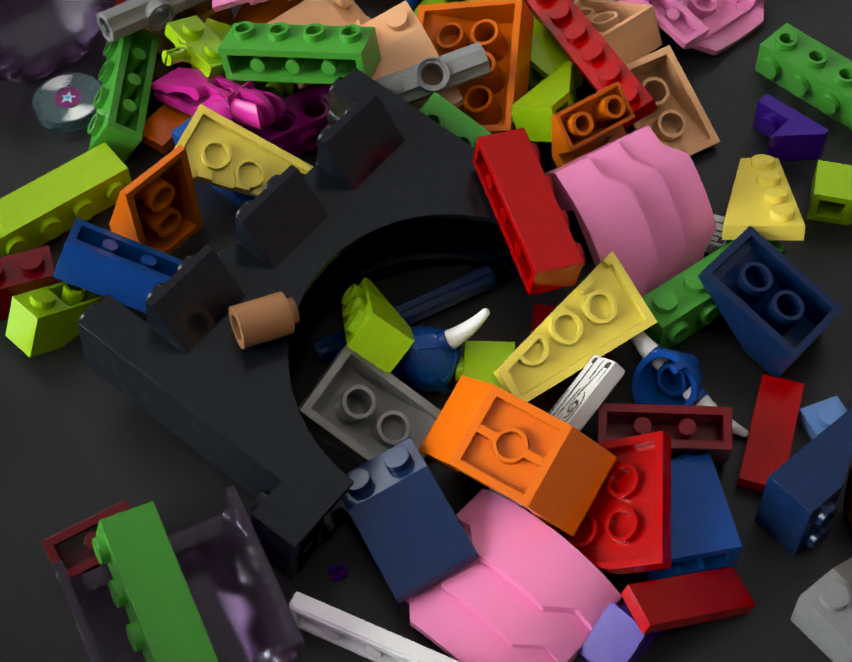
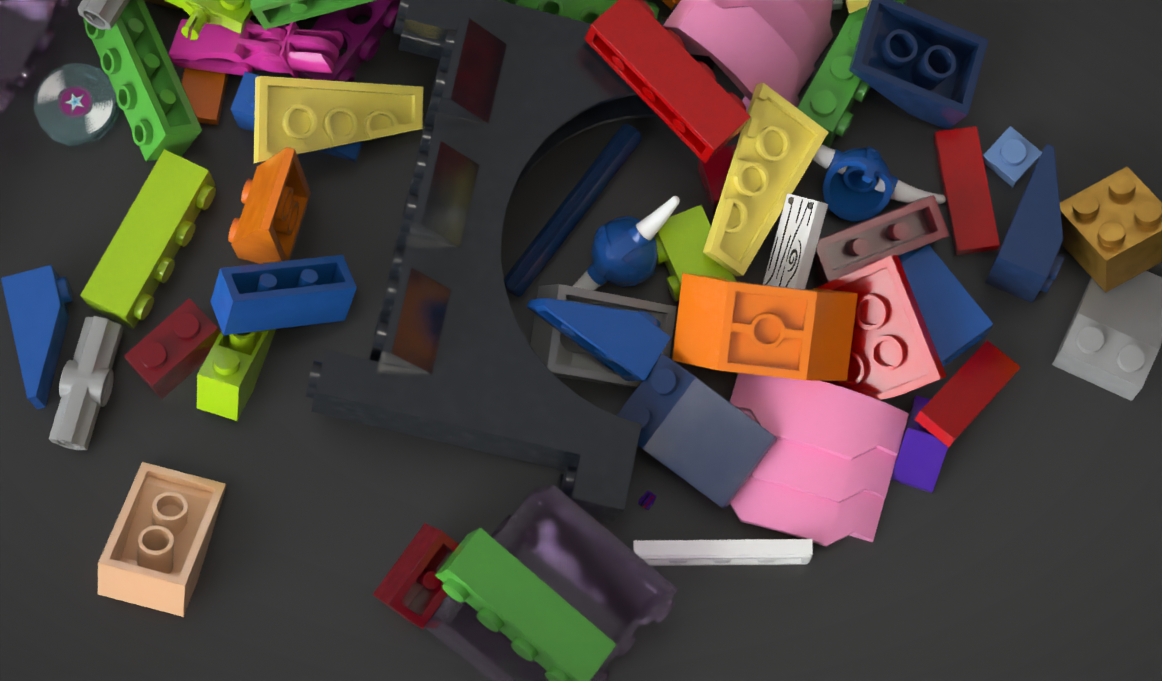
camera: 25 degrees left, 20 degrees up
(263, 319) = (488, 311): medium nougat brick -> none
(372, 402) = (615, 337): none -> blue slope
(374, 326) = (565, 250): lime slope -> none

